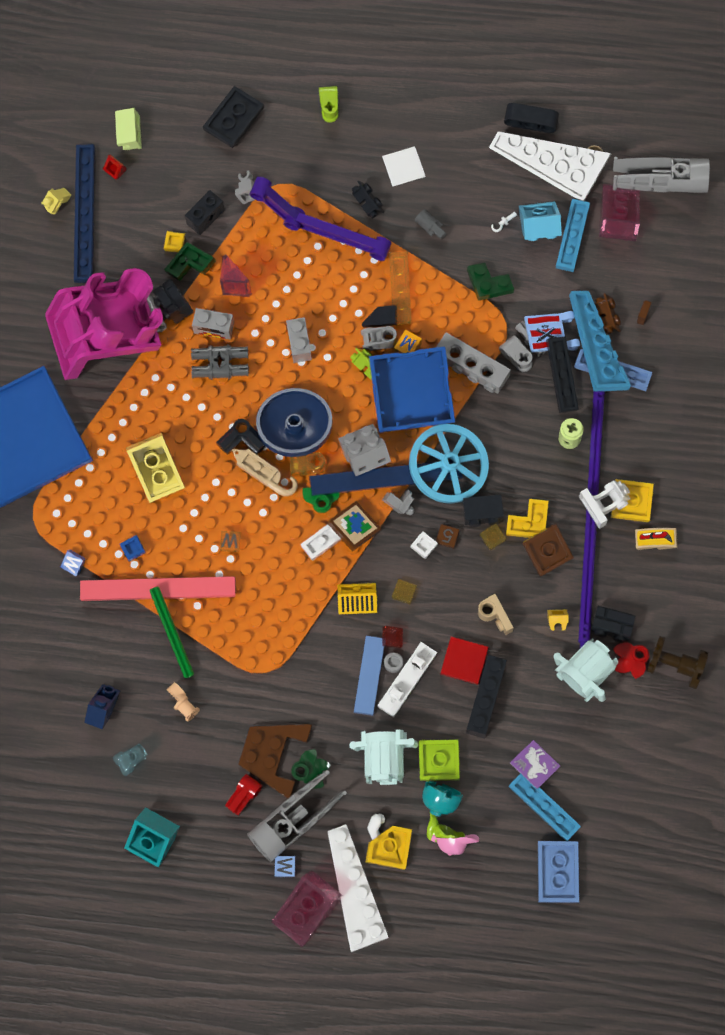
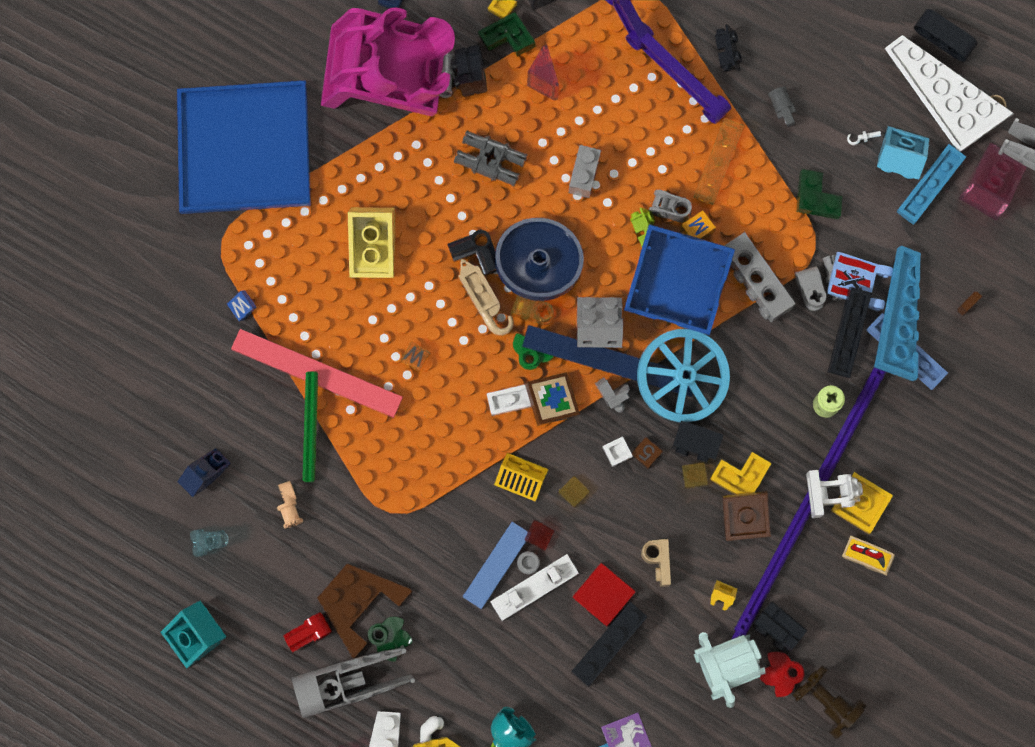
camera: 20 degrees right, 5 degrees up
(132, 548) = (310, 318): blue tile -> none
(213, 323) = (501, 113): light grey brick -> none
(285, 866) = (317, 728): light blue tile -> none
(381, 317) = (684, 184): black tile -> none
(384, 755) = (471, 659): light aqua container -> none
(403, 166) = (783, 28): white sticker -> none
(439, 760) = (528, 689): lime plate -> none
(611, 320) = (930, 278): reddish brown hinge -> none

